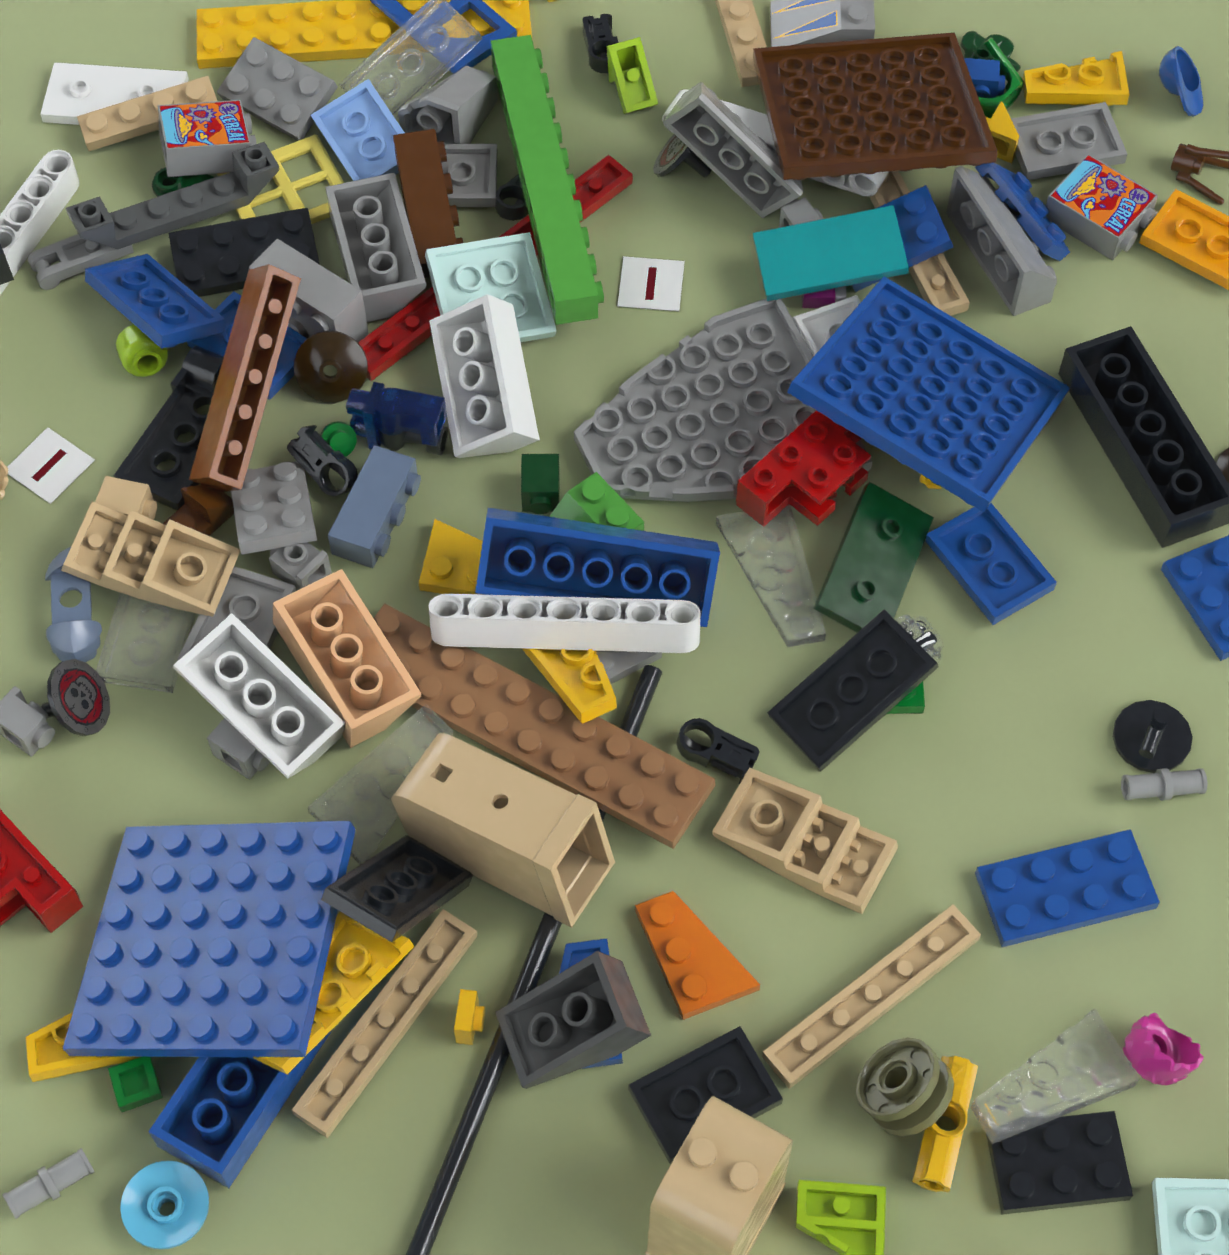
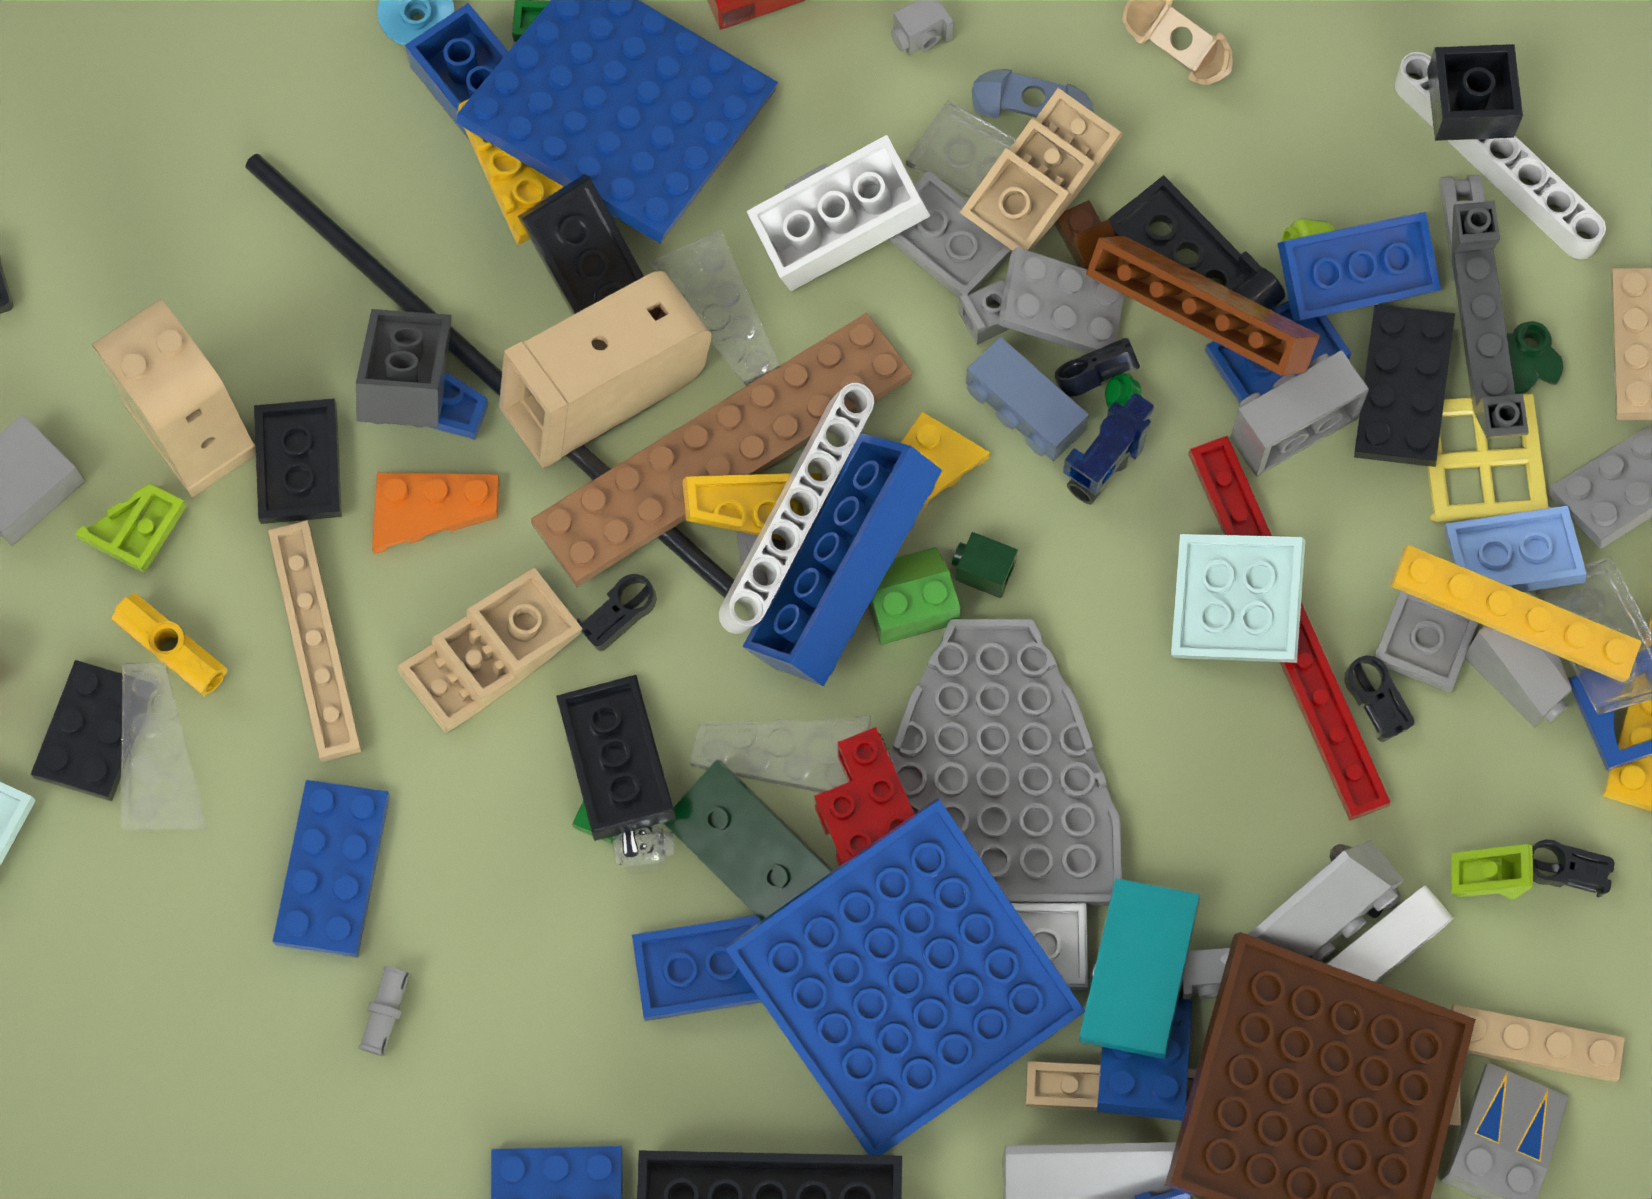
camera: 115 degrees right, 10 degrees up
(49, 465) = (1213, 131): white sticker -> none
(77, 697) = (920, 72): shield -> none
(127, 495) = (1125, 175): tan brick -> none
(203, 136) = (1571, 385): brick -> none
(330, 349) = (1208, 410): dark brown dish -> none
(345, 656) = (854, 302): light nougat slope -> none
(376, 243) = (1350, 500): light grey slope -> none
(384, 1023) = (489, 230): tan plate -> none
(426, 191) = (1363, 574): reddish brown brick -> none
(433, 91) = (1515, 613): none -> yellow plate
(469, 1017) = (460, 294): yellow plate -> none
(484, 378) = (1125, 549): white slope -> none
(544, 181) = (1375, 709): bright green brick -> none
(651, 283) = (1204, 786): white sticker -> none
(905, 1087) = (209, 615): olive wheel -> none
(1152, 736) = (444, 1035): black shield -> none
(1160, 1052) = (132, 860): dark pink hair -> none

